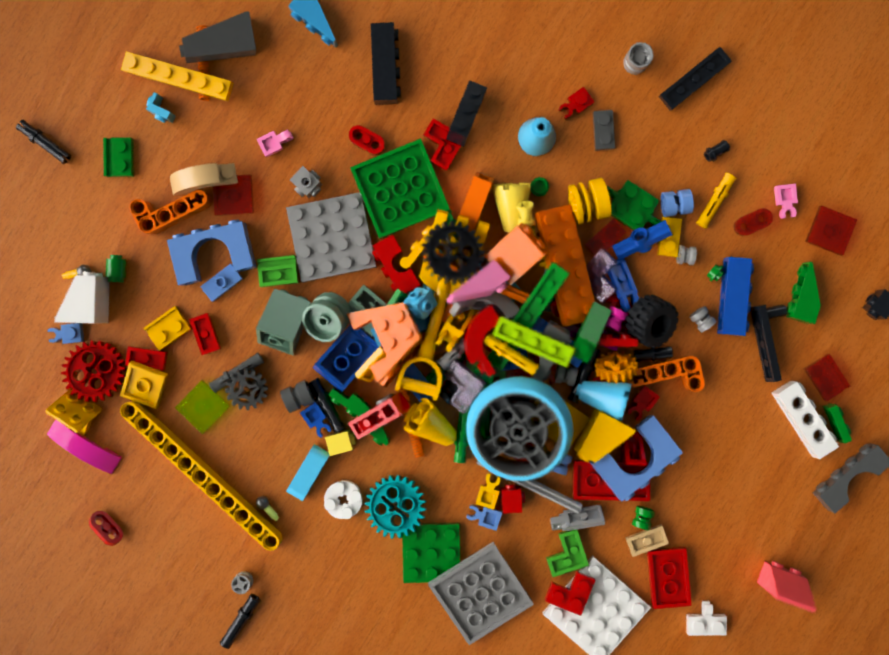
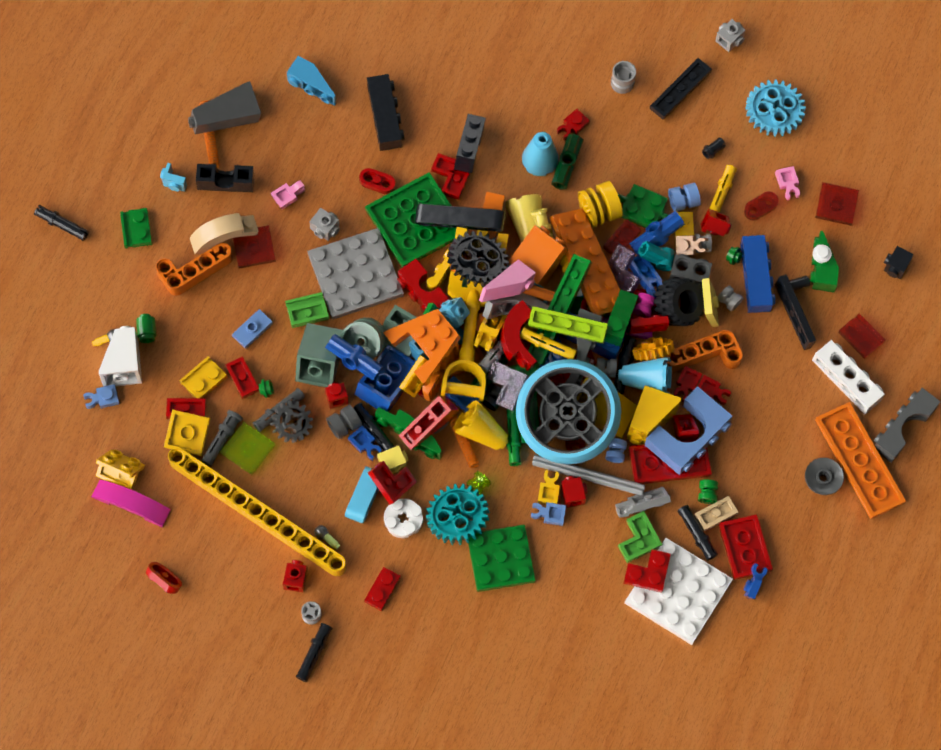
camera: 10 degrees left, 20 degrees down
(78, 363) = (152, 431): red gear -> none
(177, 76) = (186, 147): yellow plate -> none
(182, 386) = (225, 430): none -> dark grey pin
(185, 249) = (256, 282): medium blue arch -> none
(217, 119) = (213, 179): none -> black arch
(227, 349) = (266, 388): none -> green plate
(227, 552) = (295, 583): none -> red brick
(294, 366) = (334, 393): none -> red brick
(312, 339) = (353, 357): none -> blue piece
(313, 566) = (382, 588): none -> red plate
(333, 471) = (391, 485): none -> red plate
(420, 477) = (479, 482): none -> clear neon green wheel
(443, 200) = (460, 217): none -> black beam
(480, 593) = (557, 586): light grey plate -> none
(539, 187) = (550, 201): green plate -> none
(569, 135) = (564, 170): none -> dark green piece
(603, 130) = (603, 144): dark grey plate -> none
(628, 564) = (697, 532): none -> black pin
(640, 265) = (662, 257): none -> teal piece
(653, 354) = (688, 337): black axle -> none
(664, 411) = (712, 389): none -> red plate
(667, 288) = (691, 266): none -> dark grey brick
(670, 619) = (753, 585): none -> blue plate
(672, 257) = (688, 245): none -> plate
(683, 324) = (710, 302): none -> light yellow plate
(703, 236) = (715, 223): none -> red brick
(707, 622) = (792, 587): white plate -> none
(759, 25) = (730, 35): none -> light grey brick
(768, 522) = (827, 468): none -> dark grey dish
(786, 585) = (860, 532): coral slope -> none
(798, 506) = (860, 460): none -> orange plate
(799, 101) = (767, 119): none -> medium azure gear
(807, 289) = (822, 253): none -> white plate
(835, 418) = (879, 374): green plate -> none

